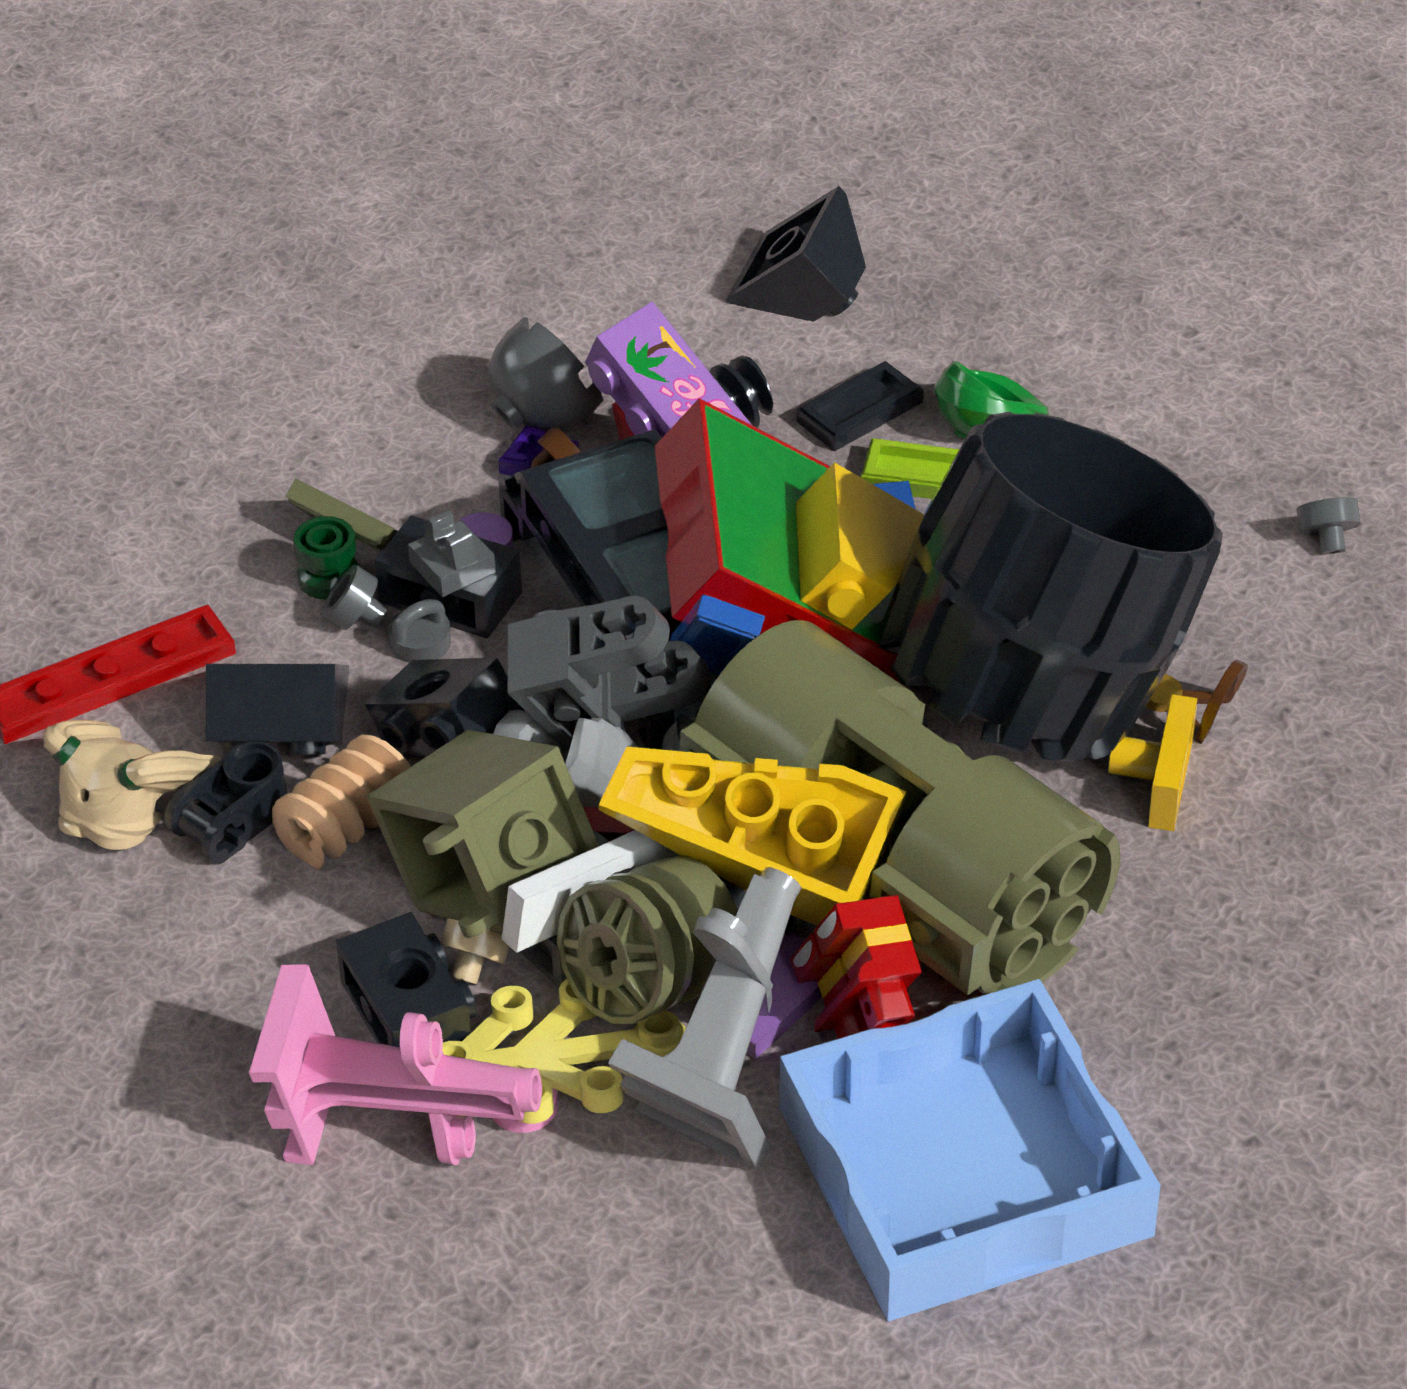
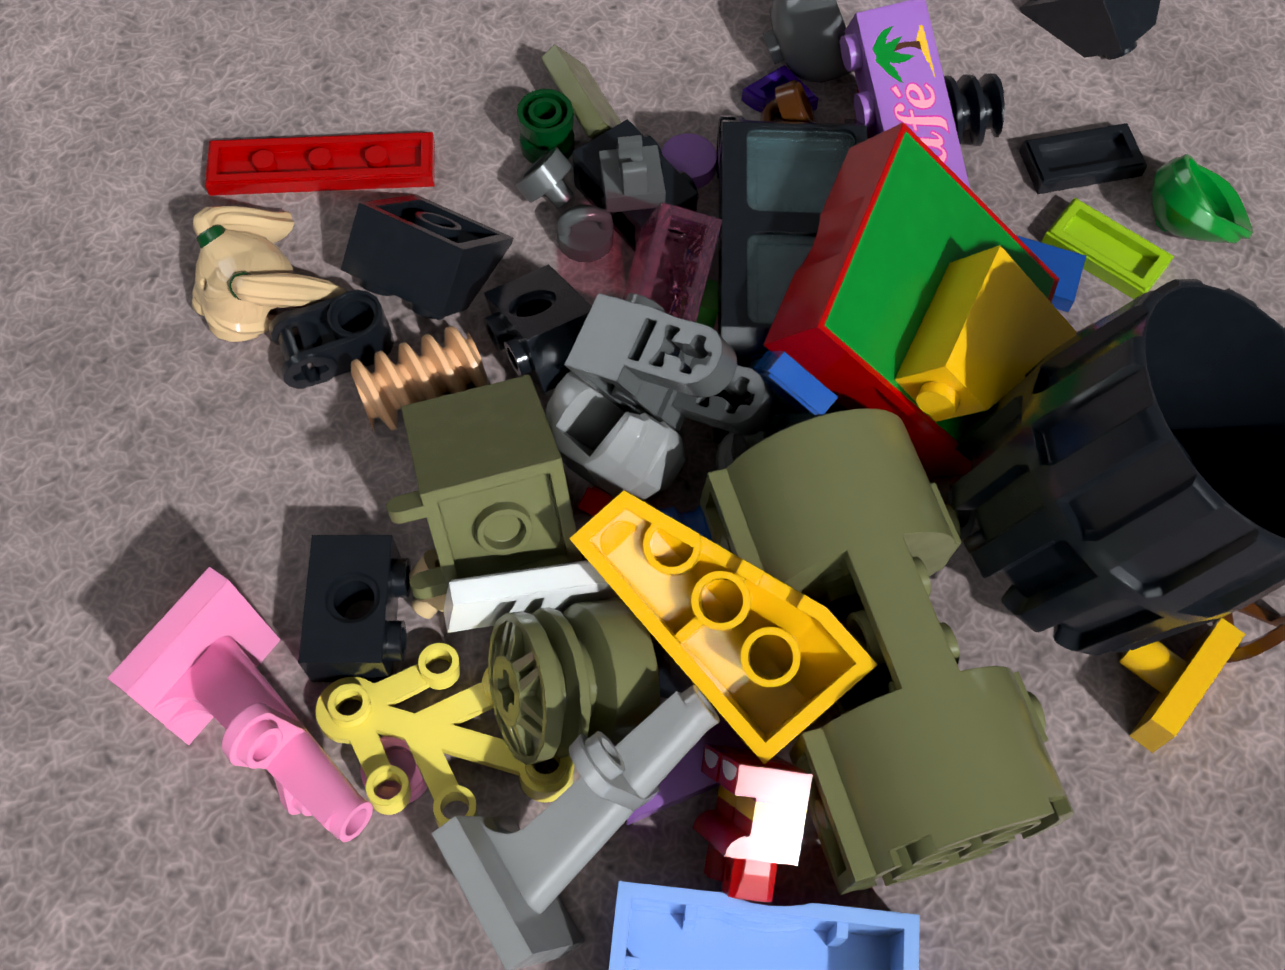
camera: 25 degrees right, 20 degrees up
(518, 597) = (671, 265): none -> clear pink torso

